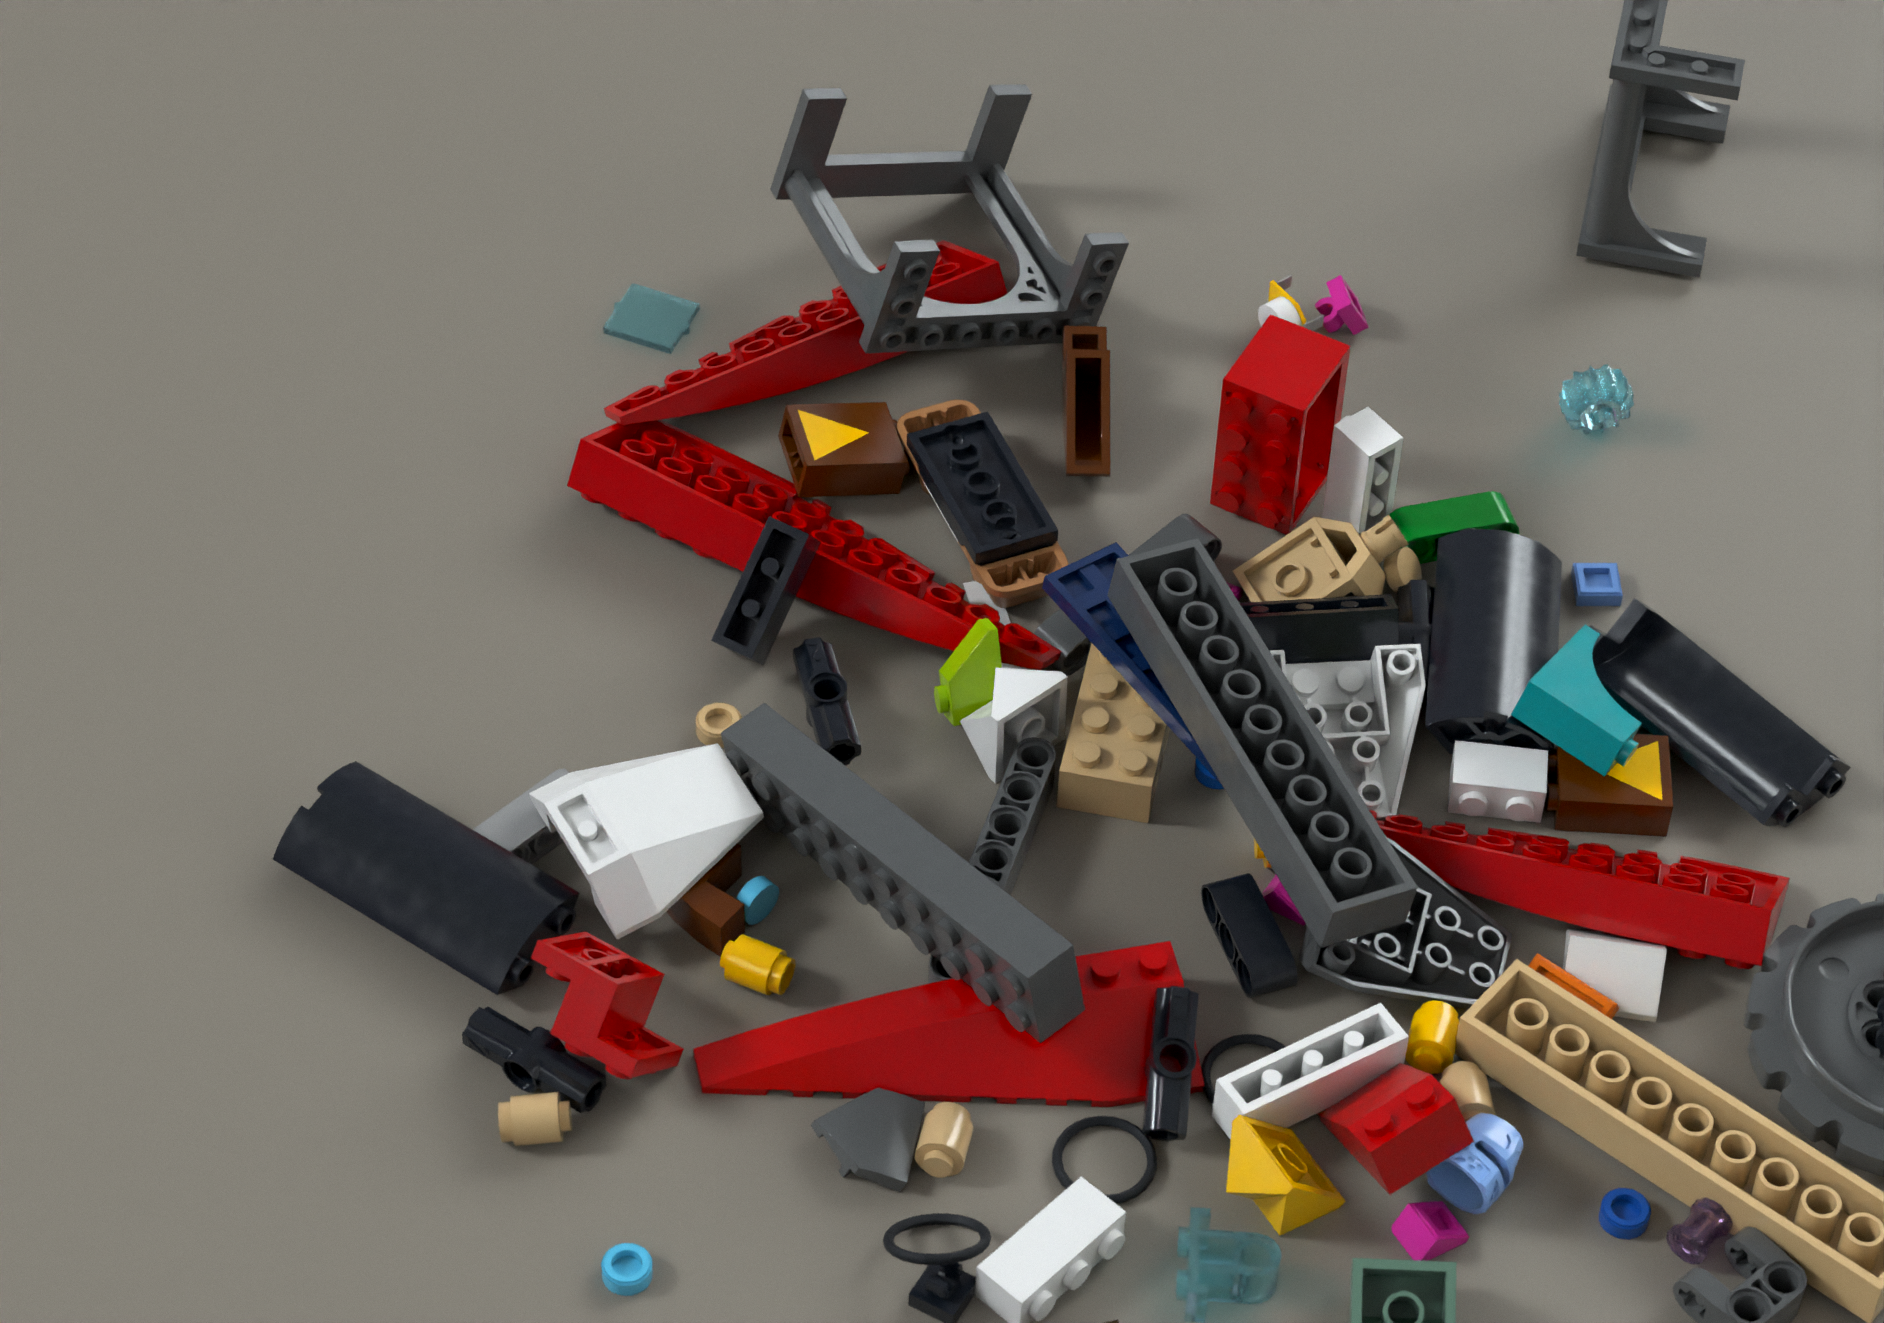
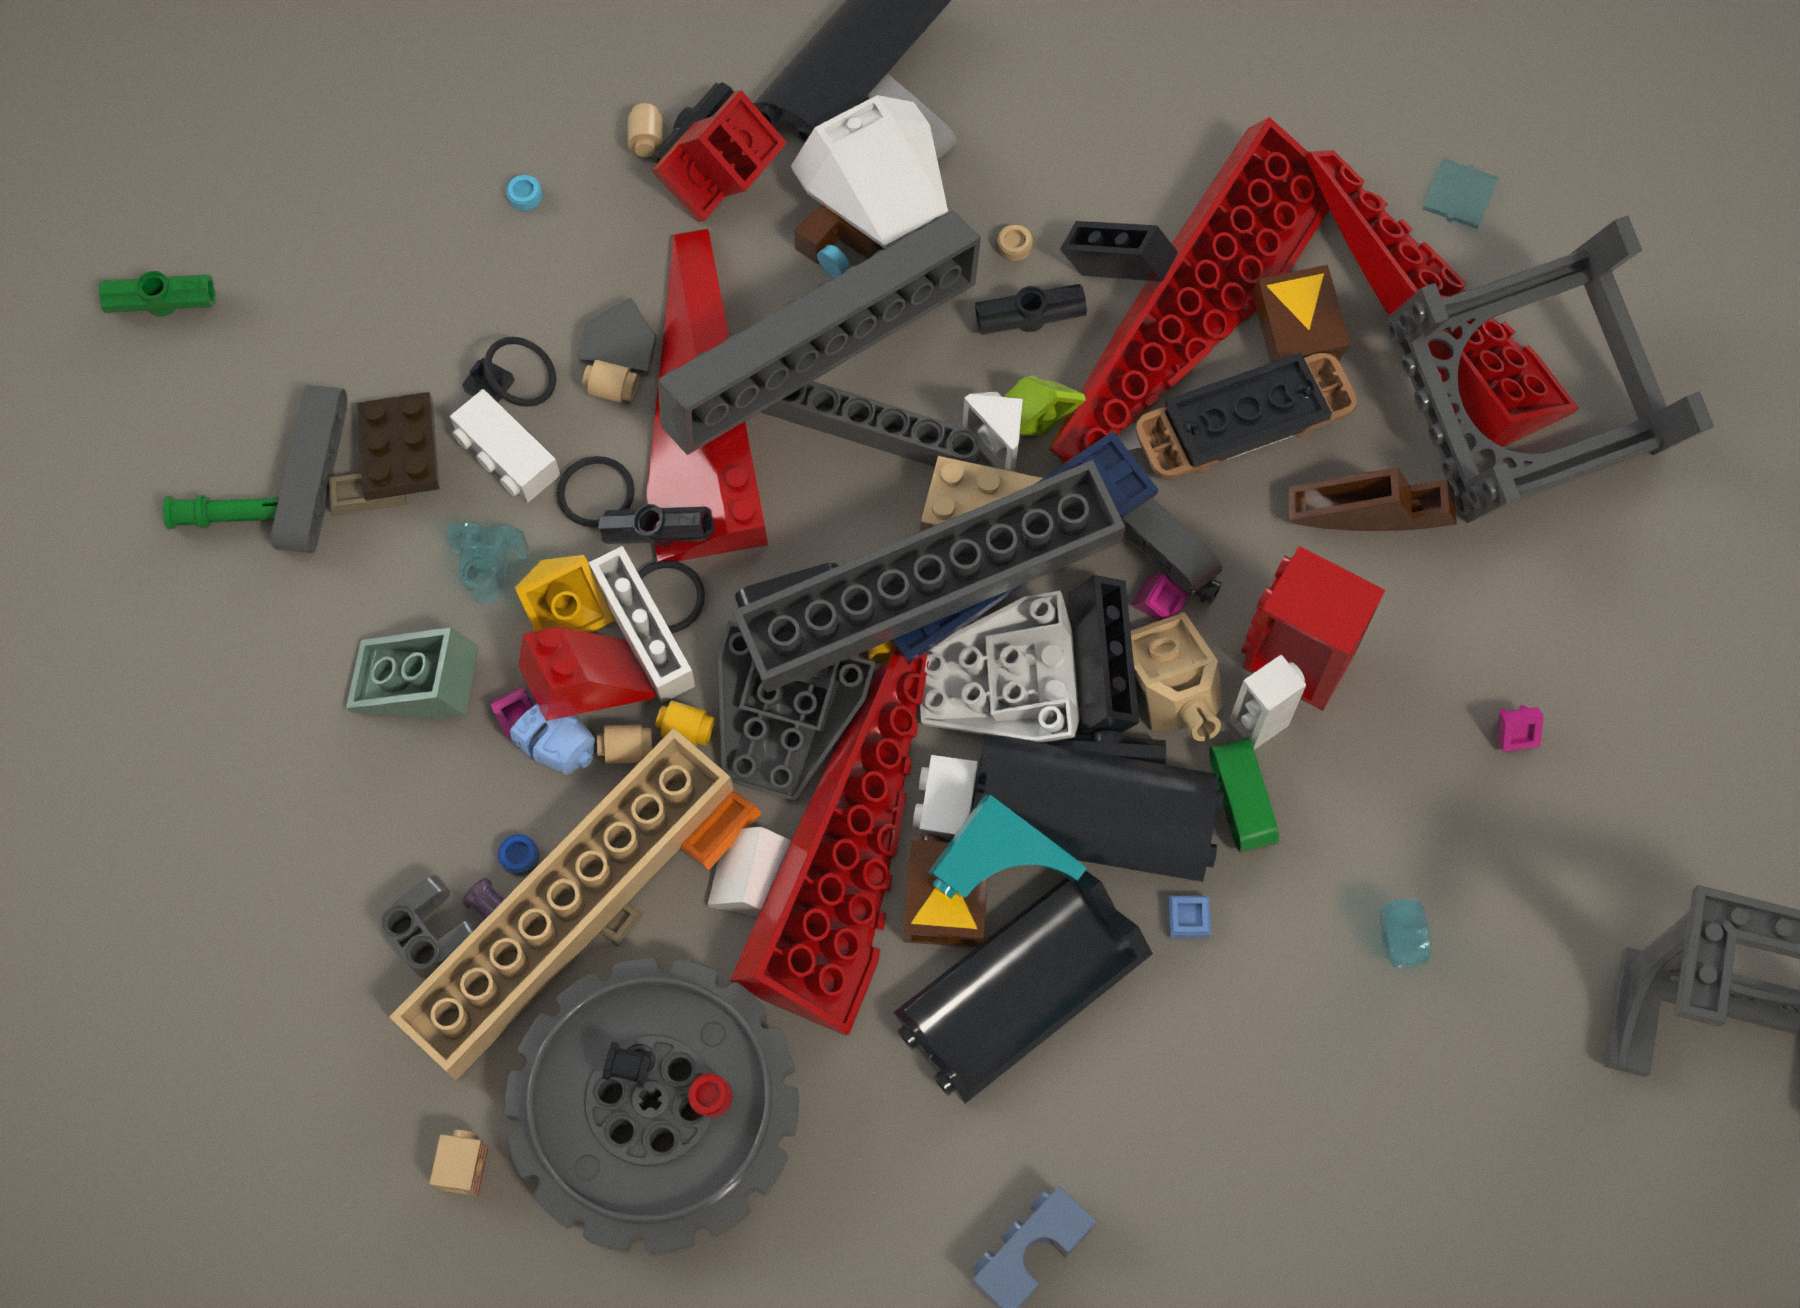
camera: 95 degrees right, 20 degrees up
(757, 965) = (772, 263): yellow brick -> none
(1285, 307) = (1498, 670): piece -> none
(1401, 568) = (1188, 751): tan tile -> none

